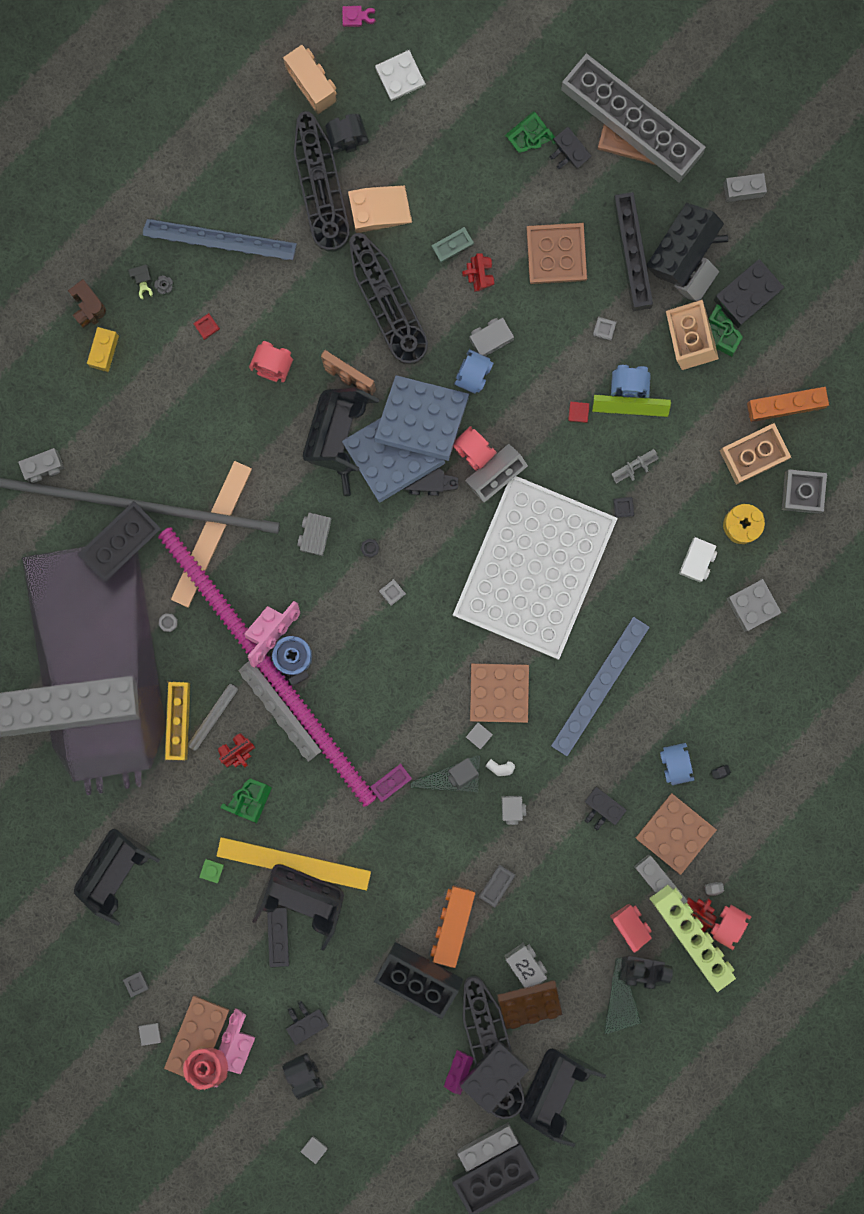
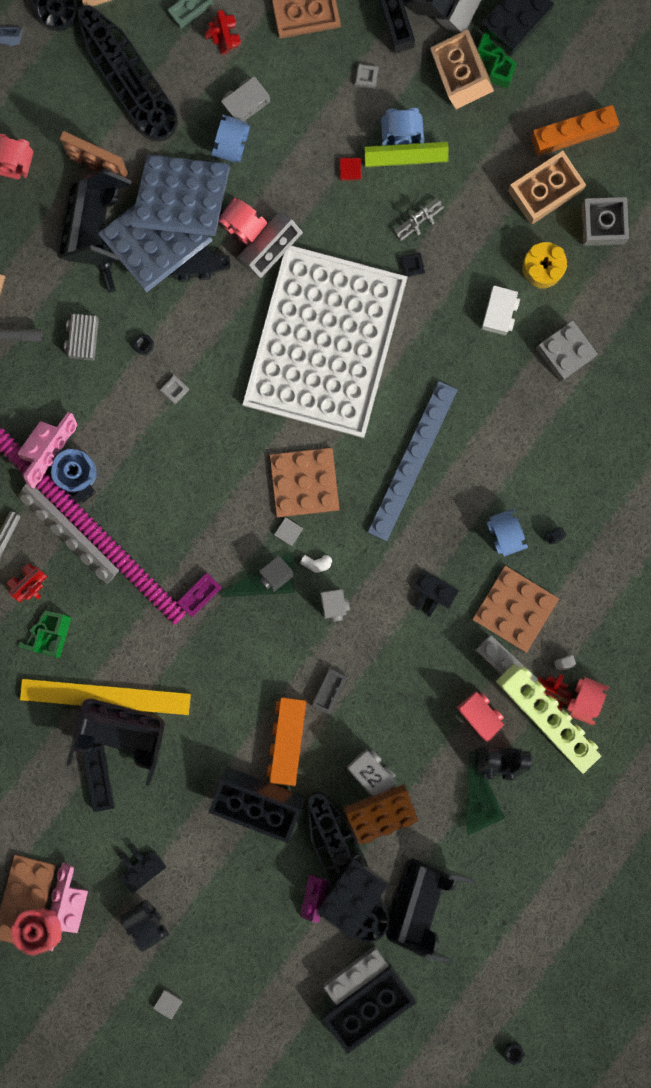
camera: 15 degrees left, 0 degrees up
(211, 870) = (17, 716): bright green plate -> none

